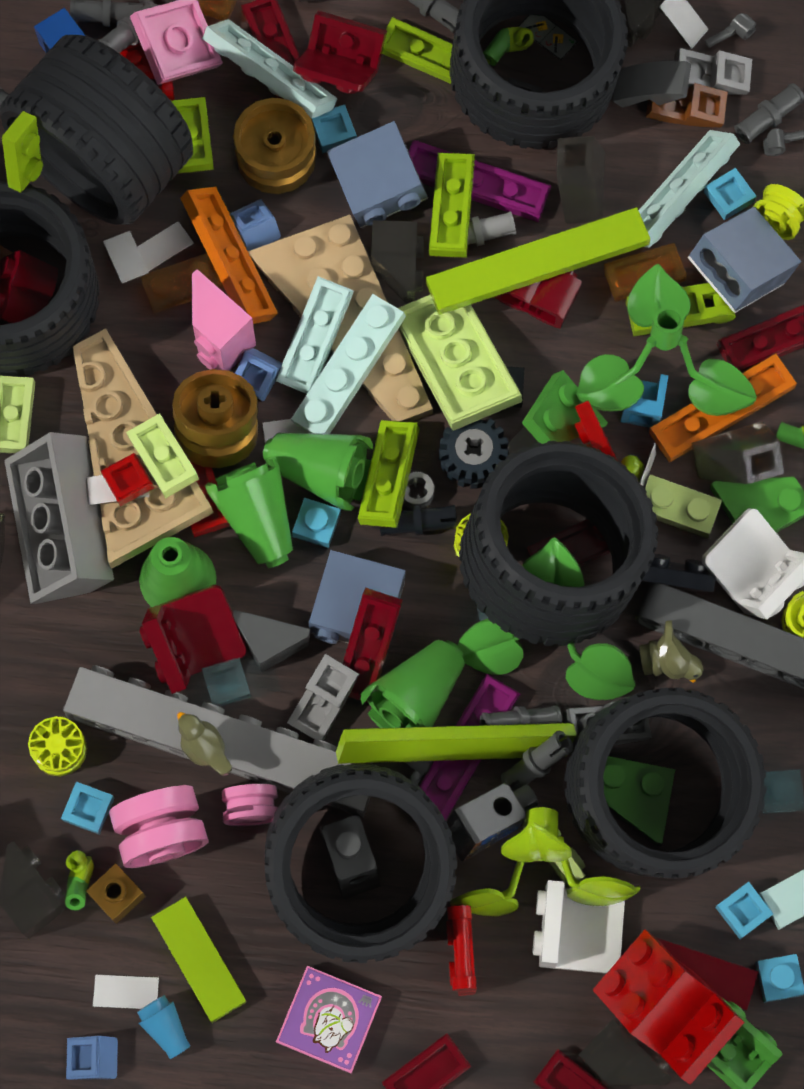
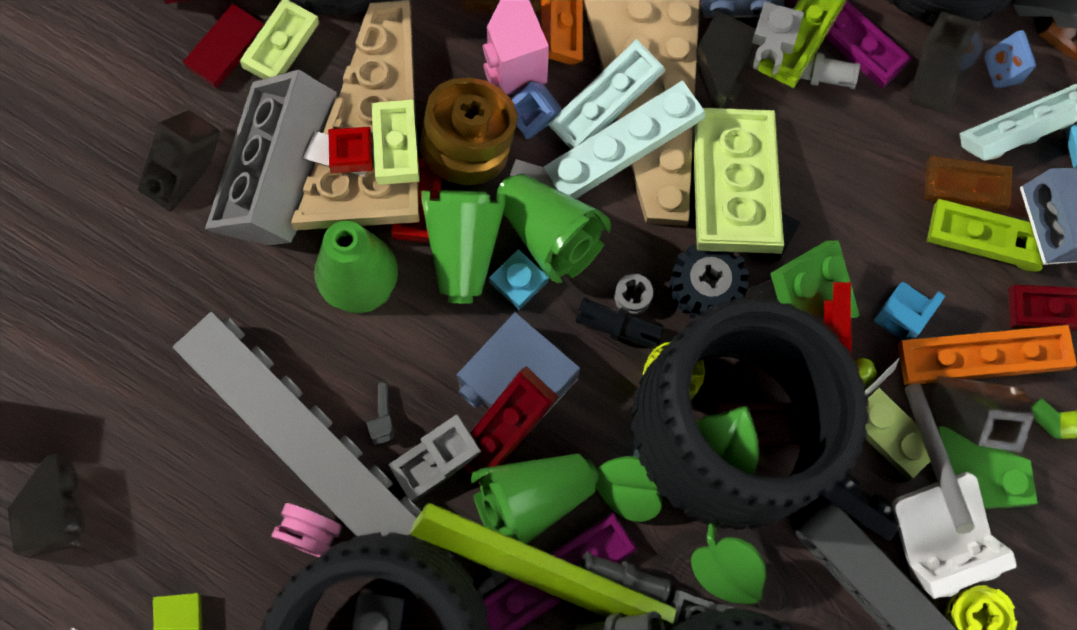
camera: 25 degrees right, 0 degrees up
(57, 746) = (154, 380): neon yellow wheel -> none
(78, 879) = (111, 516): arm -> none
(87, 808) = (150, 455): medium azure plate -> none
(122, 905) = (144, 560): pearl gold plate -> none
(158, 826) = (203, 502): bright pink wheel -> none
(191, 635) = (334, 333): dark red bracket -> none
(203, 743) = (283, 447): olive animal -> none
(226, 682) = (349, 396): clear light blue plate -> none
(266, 695) = (381, 428): none -> dark grey hand
(270, 639) = (412, 374): dark grey slope -> none
(388, 474) = (612, 264): lime tile -> none
(431, 217) = (776, 33): none -> light grey plate
(537, 261) = (865, 121): lime tile -> none
(547, 299) = (851, 150): dark red brick -> none
(632, 152) = (1010, 60): none -> medium blue slope
(663, 305) = (974, 225): bright green plant -> none
(670, 657) = (811, 587): olive animal -> none
(721, 507) = (939, 459): none -> light grey bar

